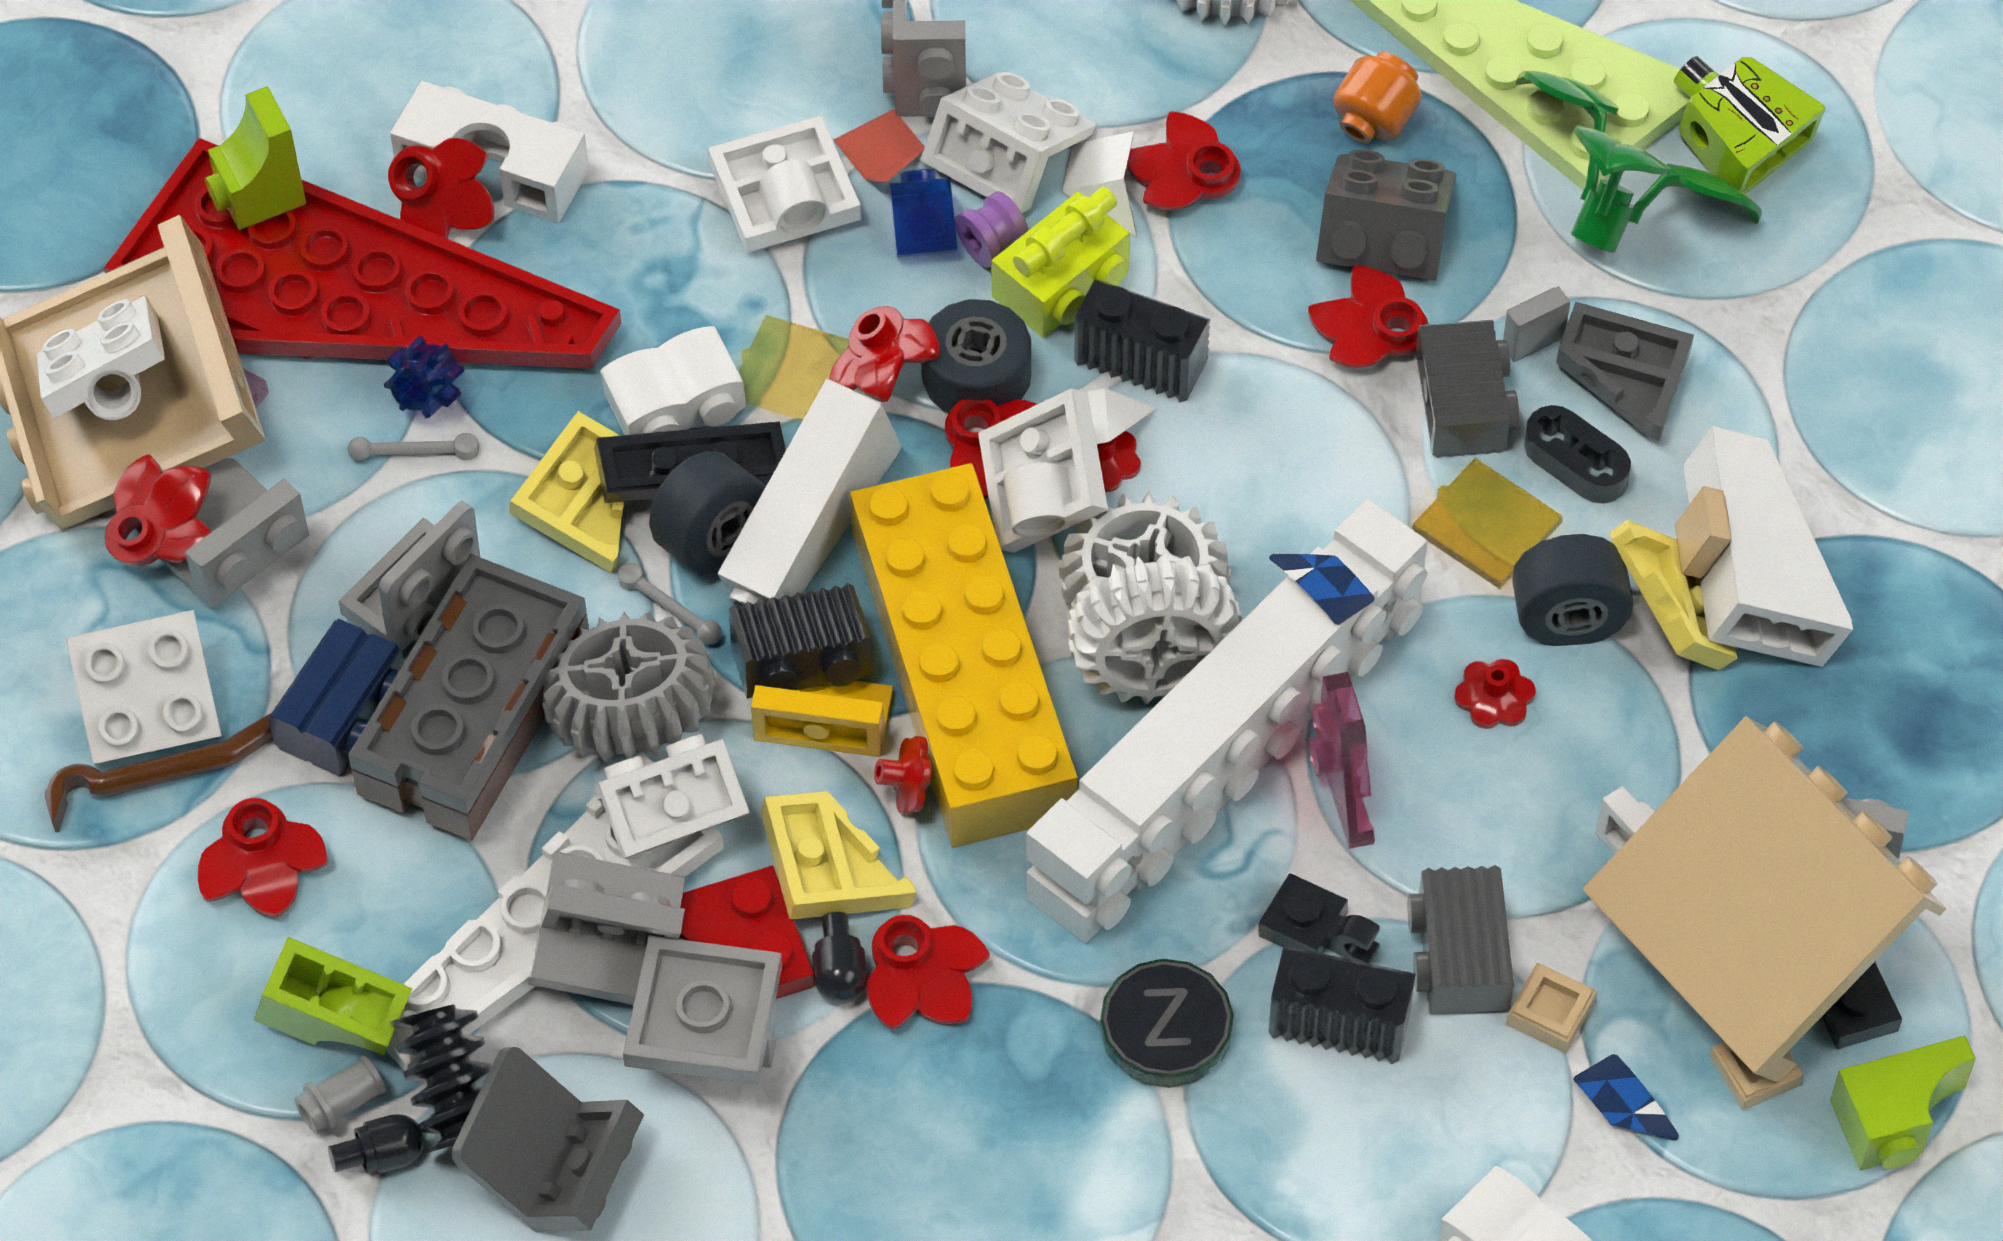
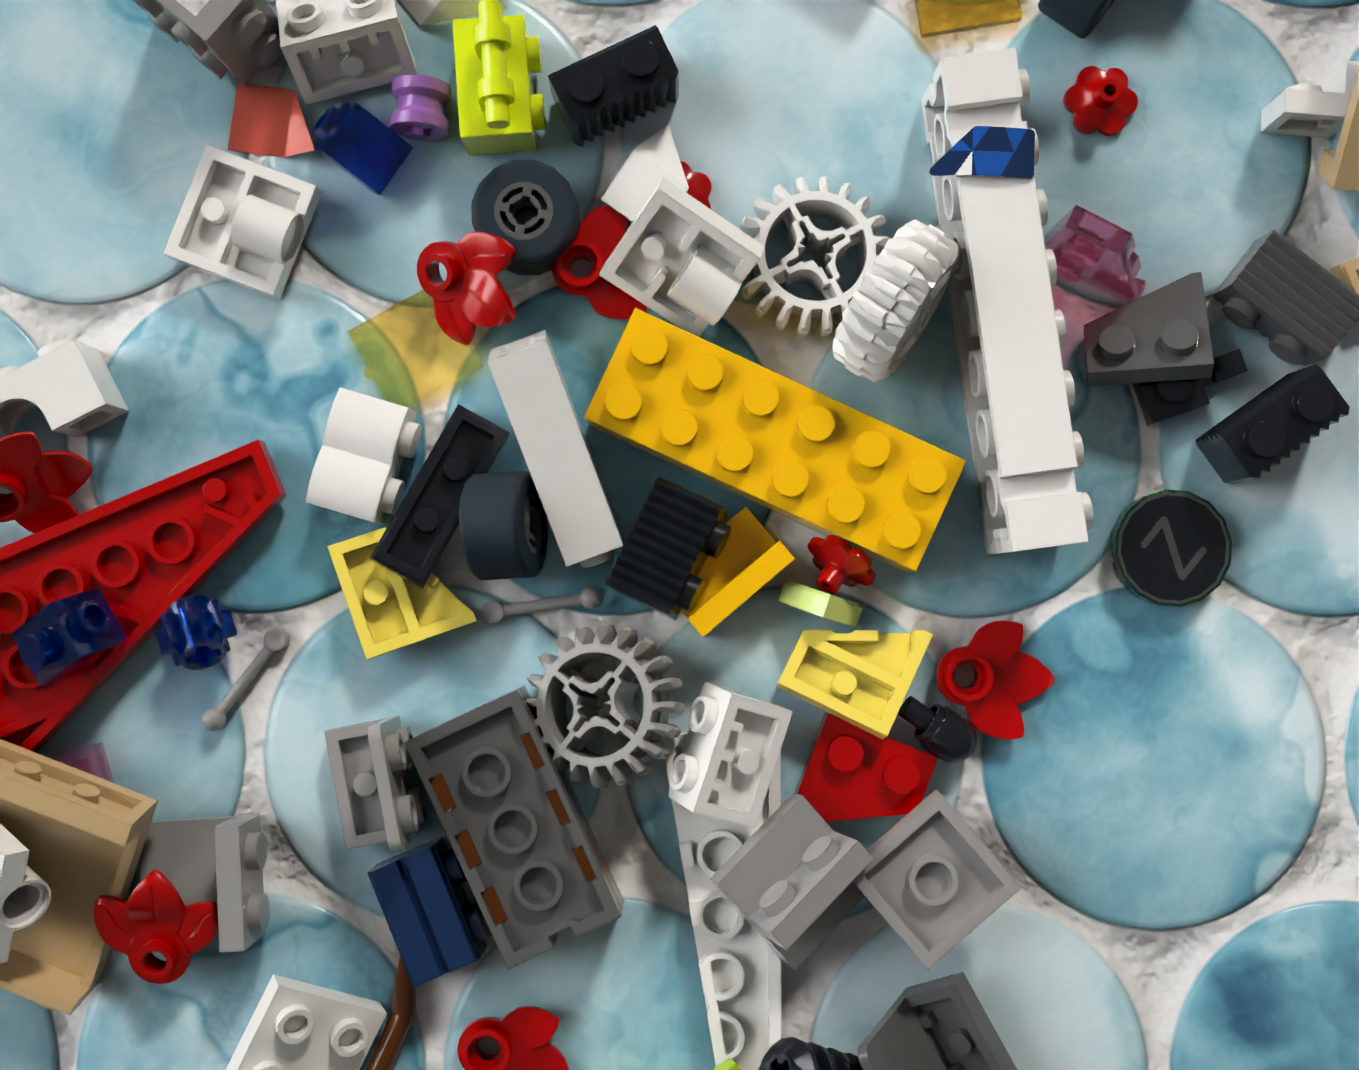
camera: 50 degrees left, 30 degrees up
(345, 284) = (67, 635): none -> clear blue bracket
(863, 794) = (820, 603): none -> yellowish green tile
(1327, 863) = (1152, 338): none -> dark grey wing

